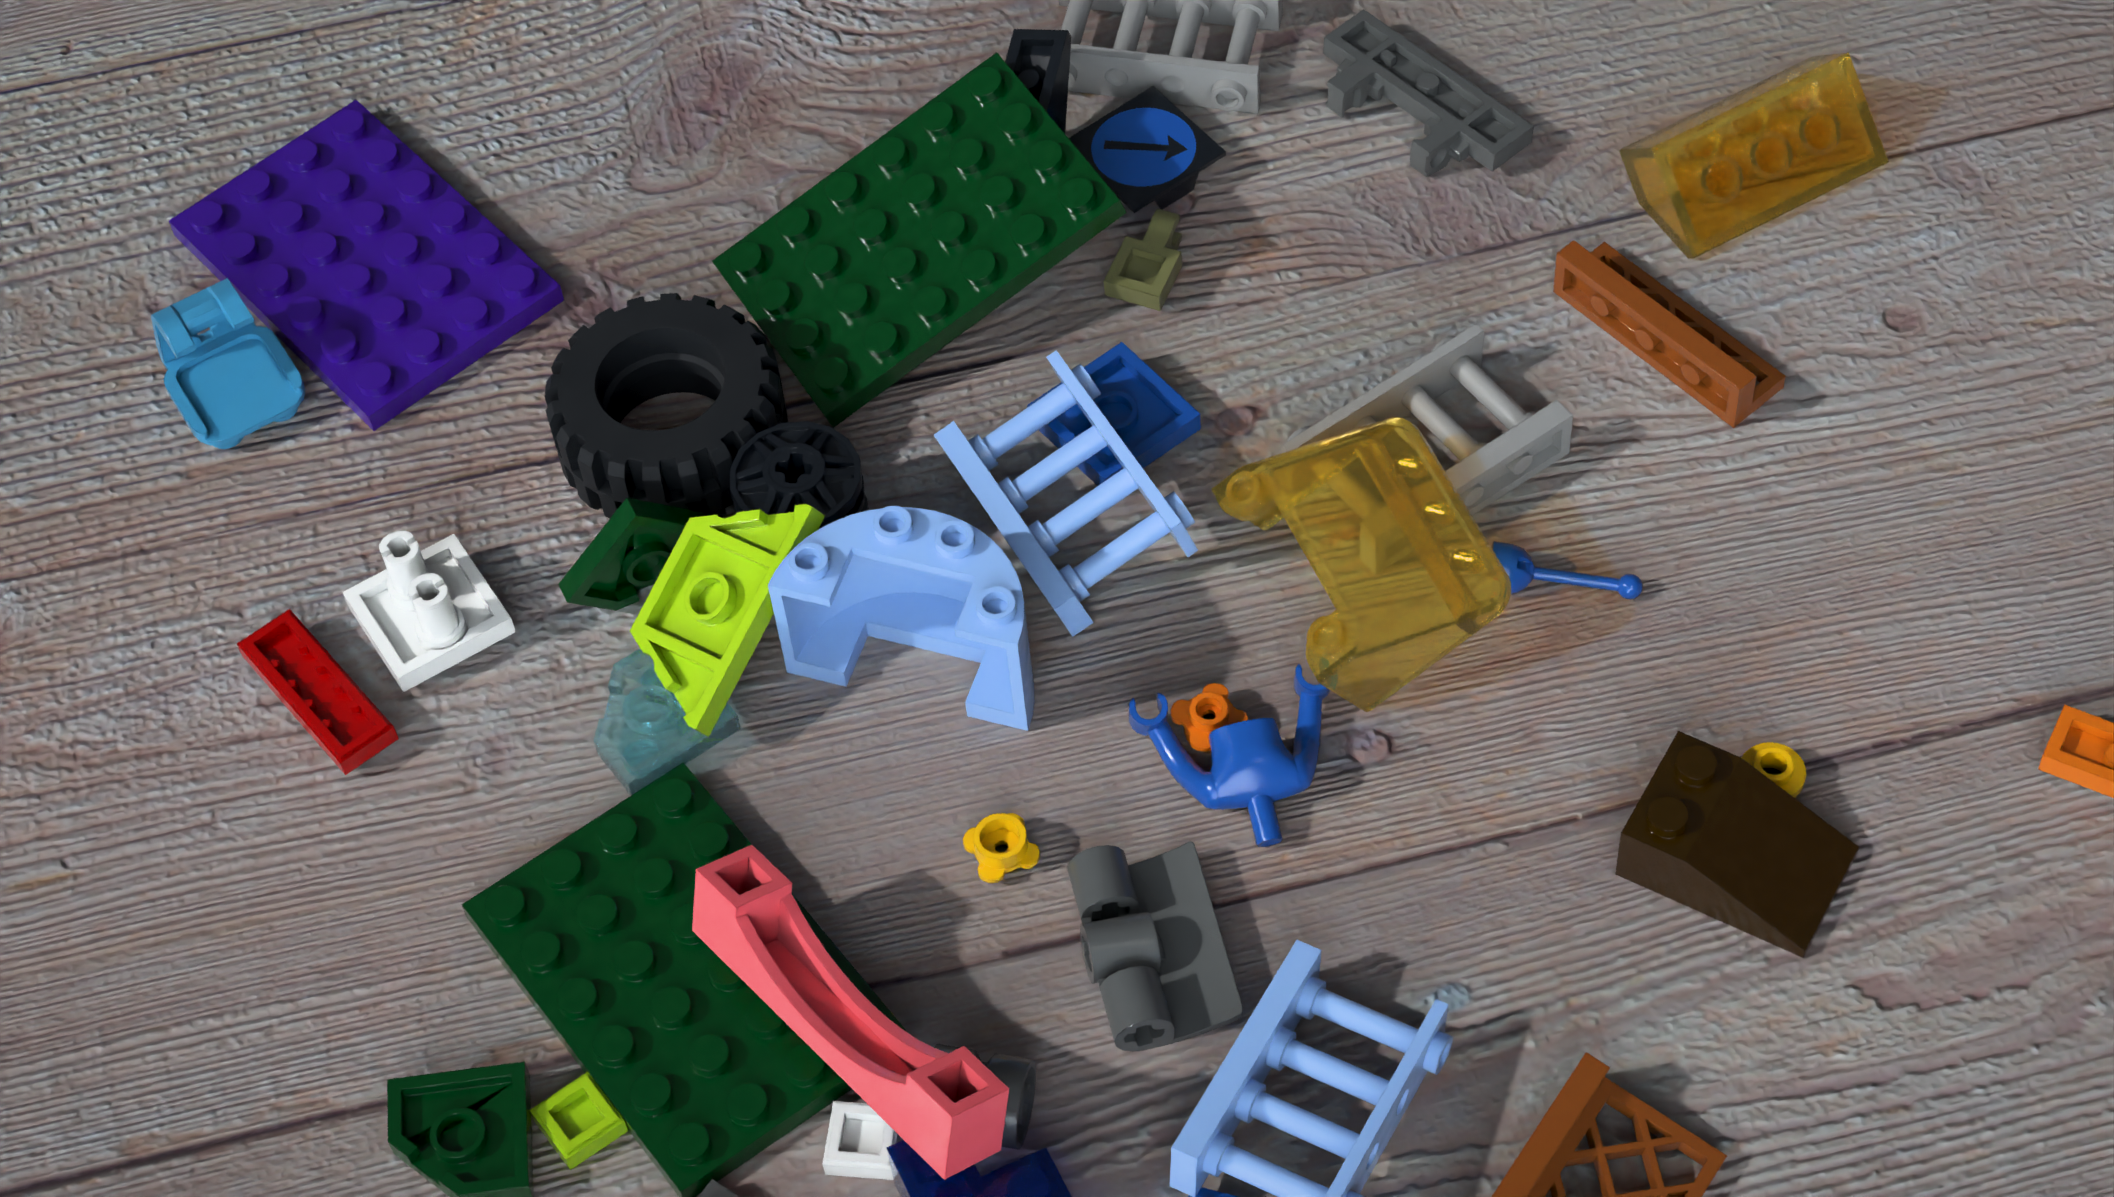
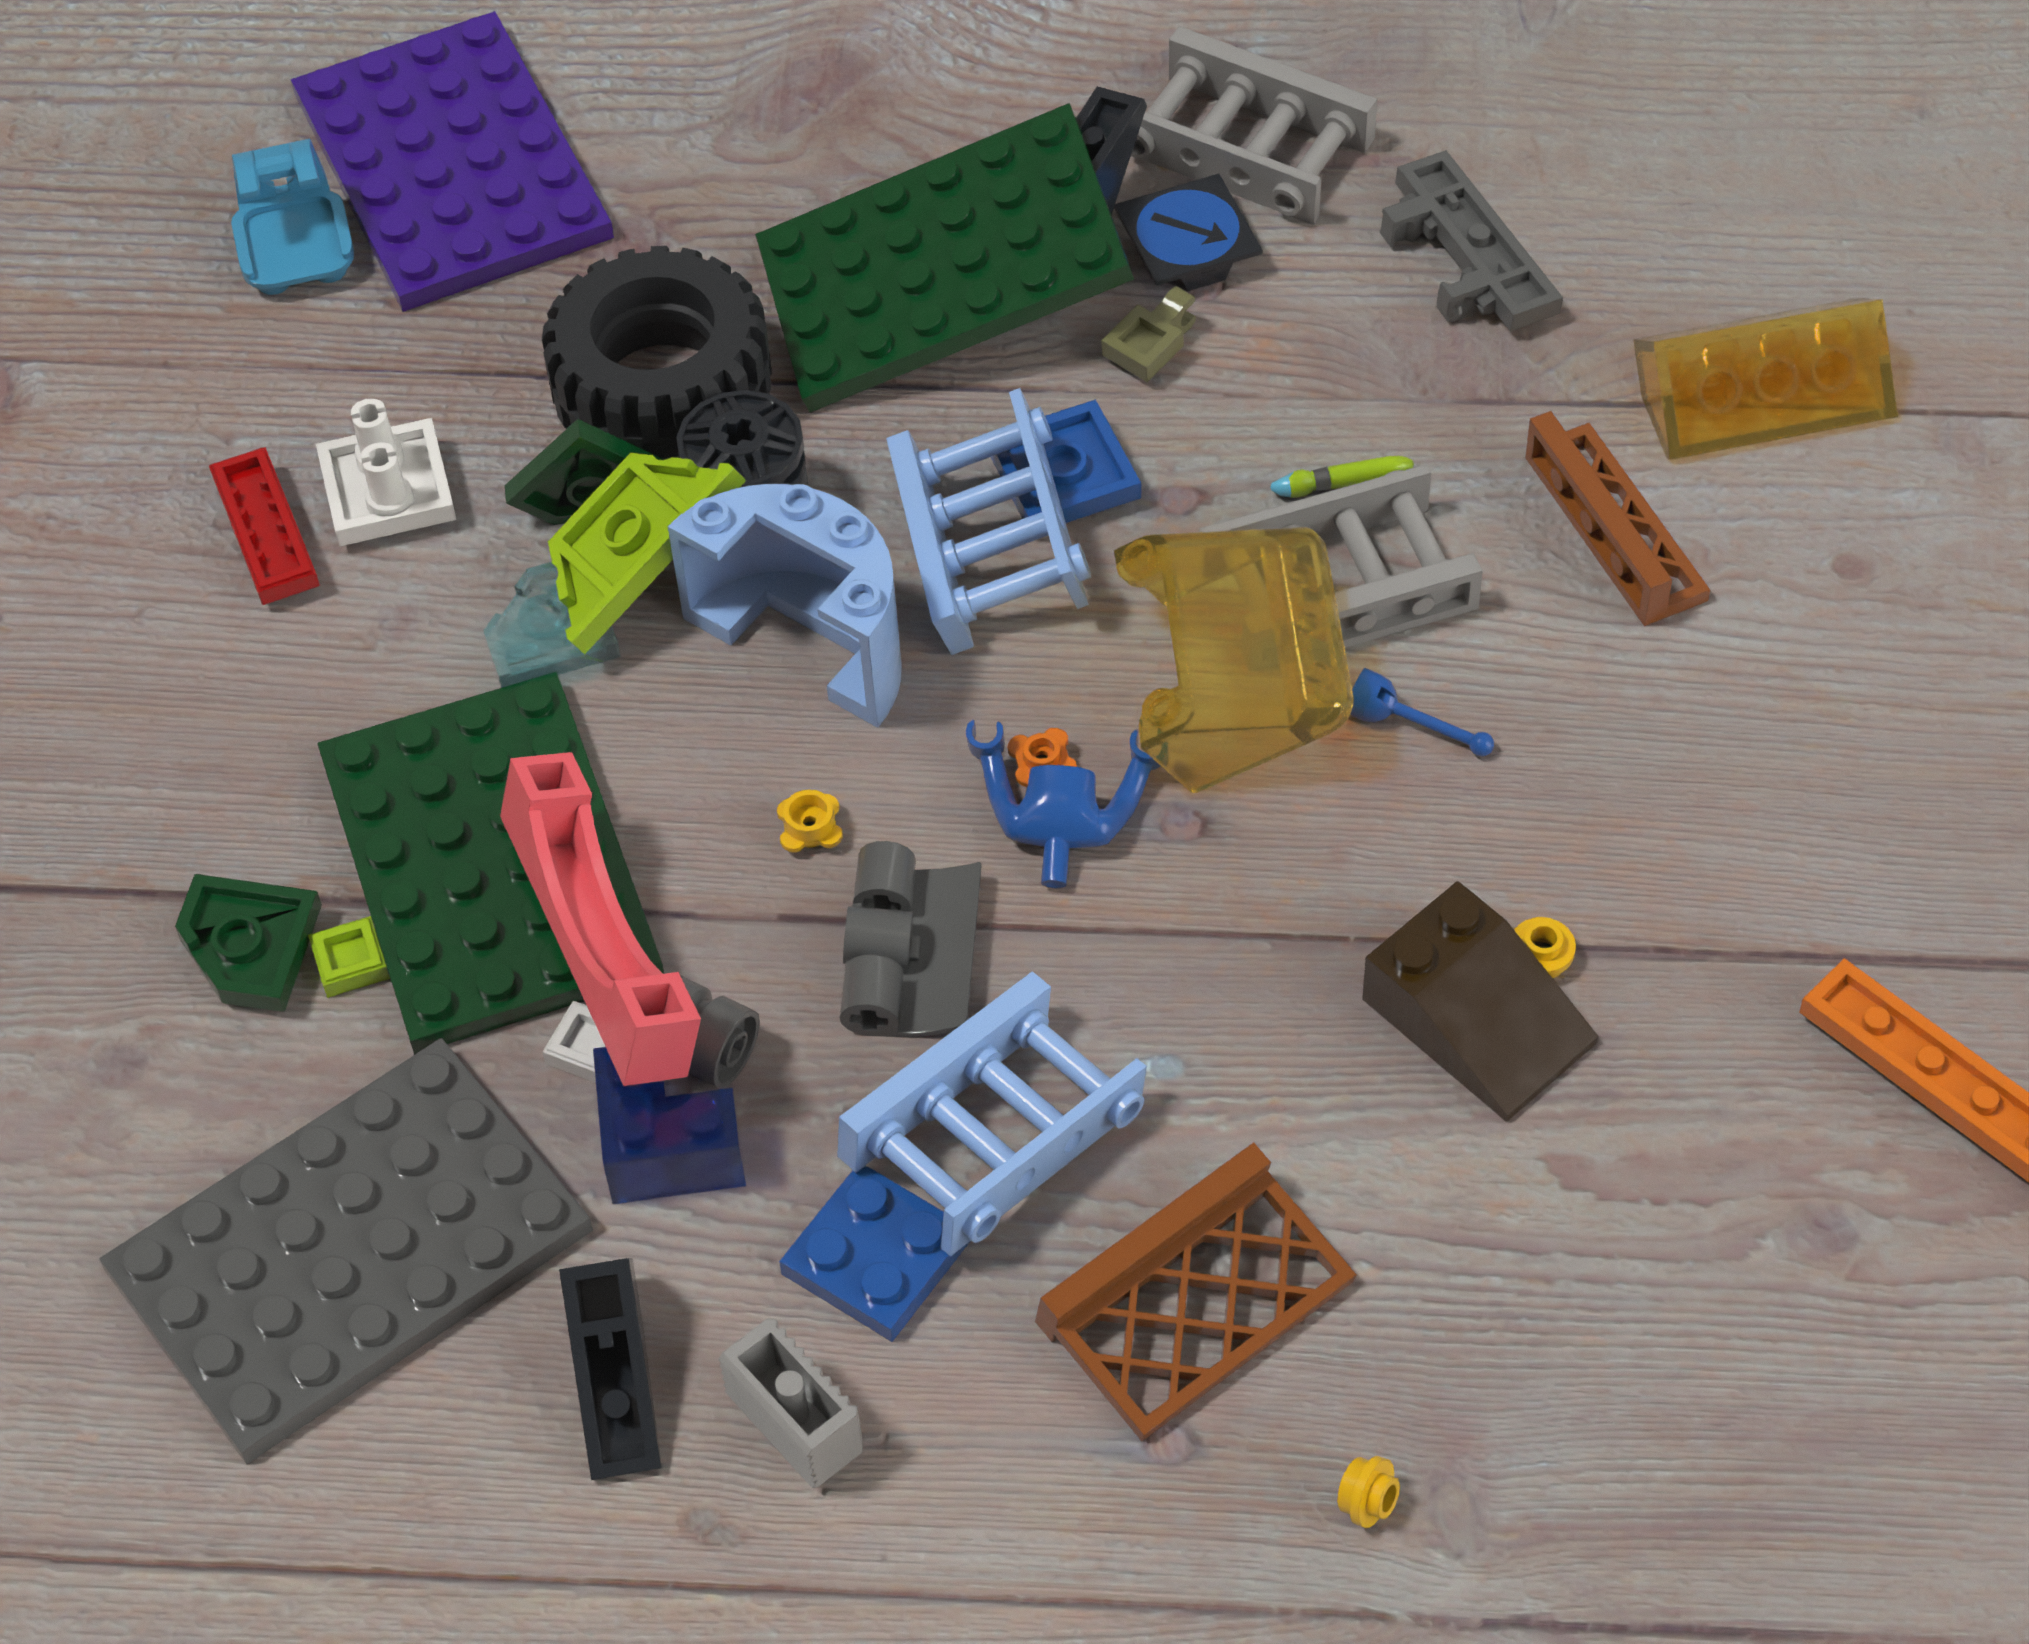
camera: 15 degrees right, 0 degrees up
(1383, 357) = (1303, 482): none -> lime piece

